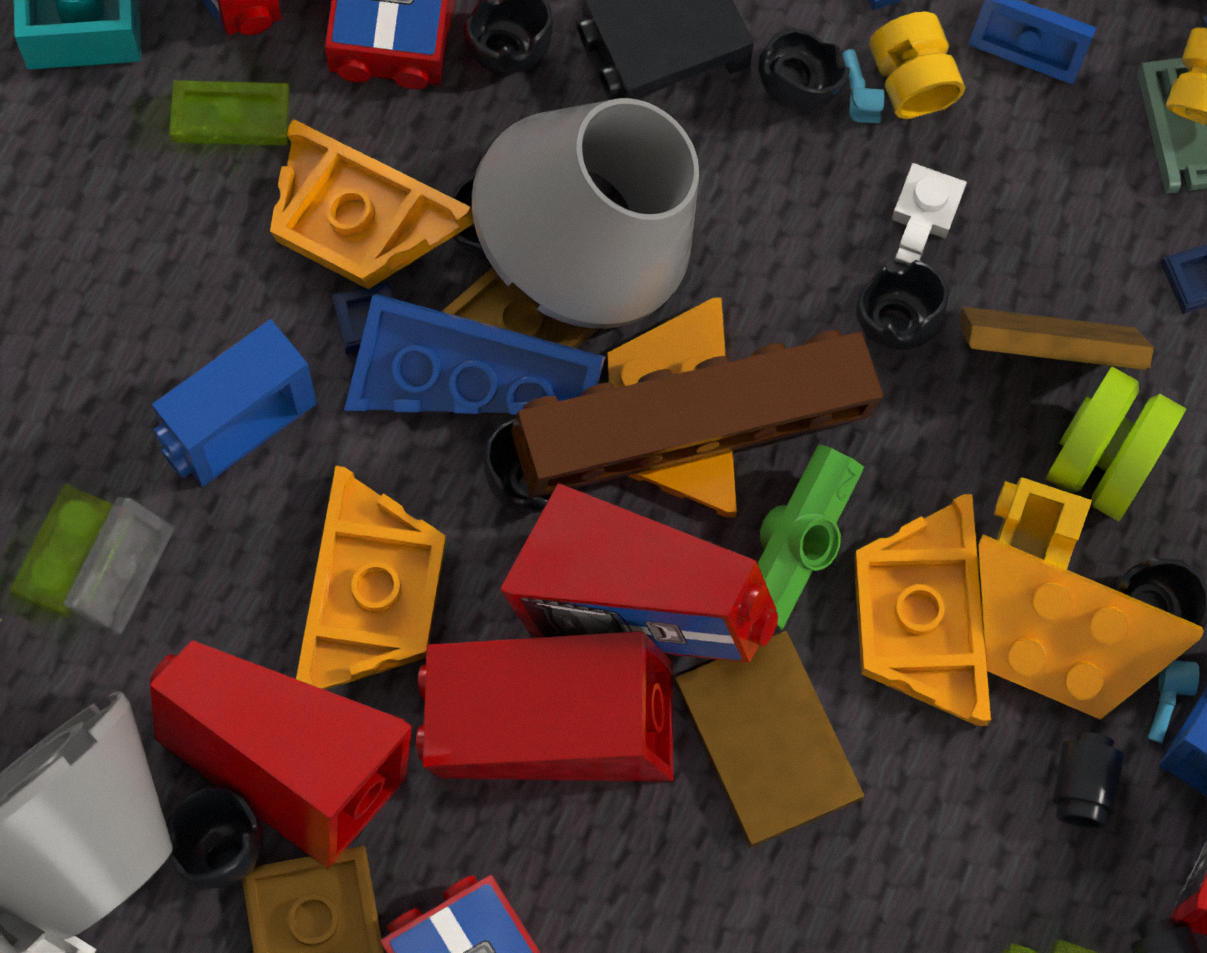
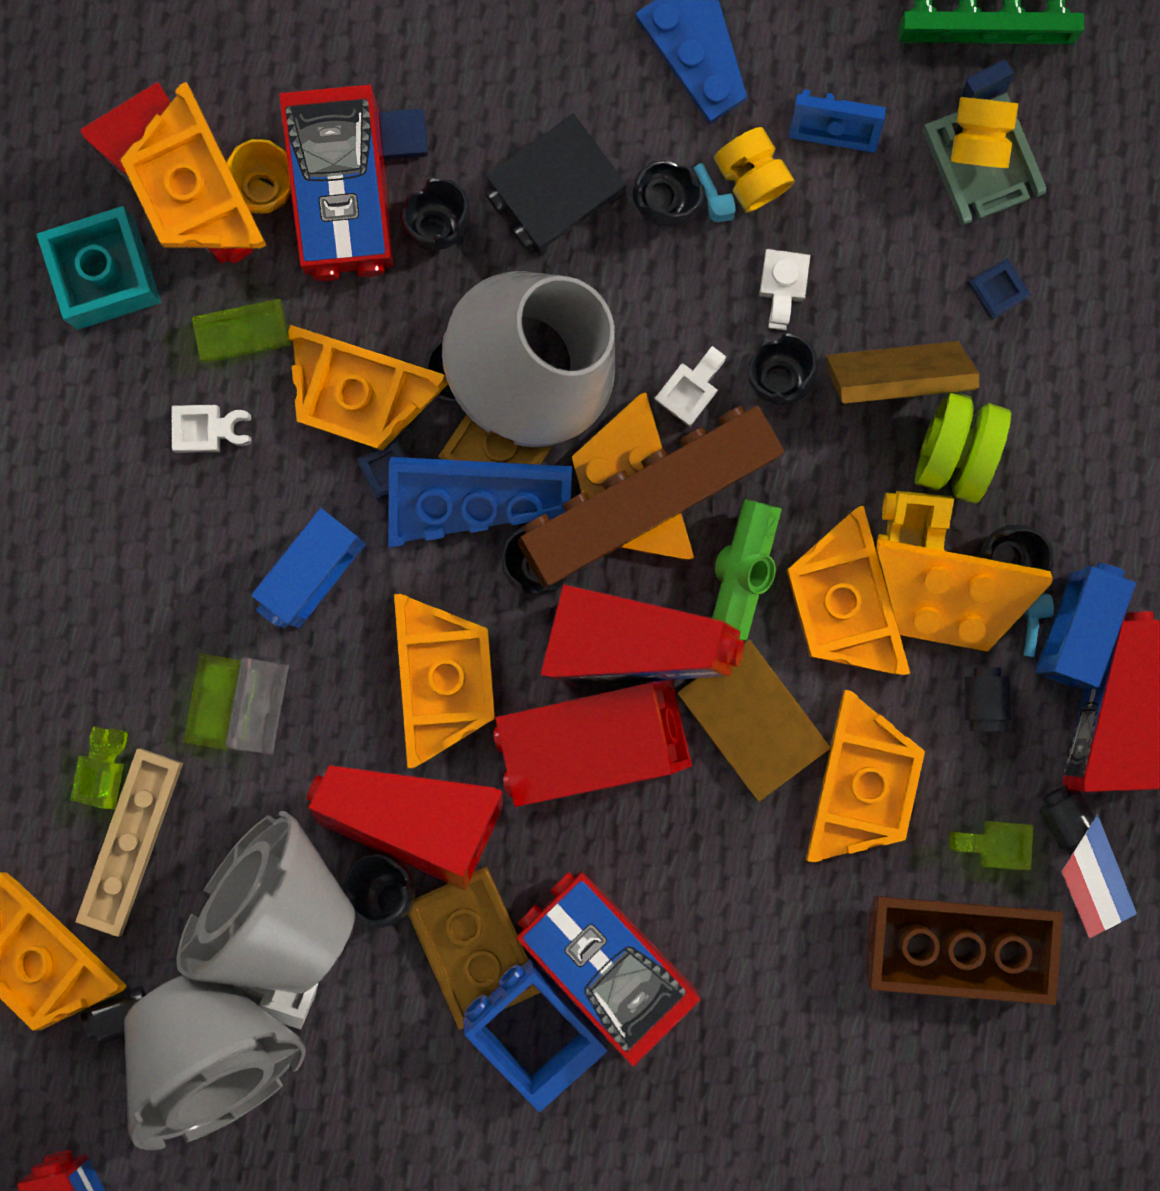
camera: 10 degrees left, 15 degrees up
(148, 213) = (201, 428): none -> white plate
(779, 307) = (689, 390): none -> white plate
(900, 856) = (865, 784): none -> light orange wing

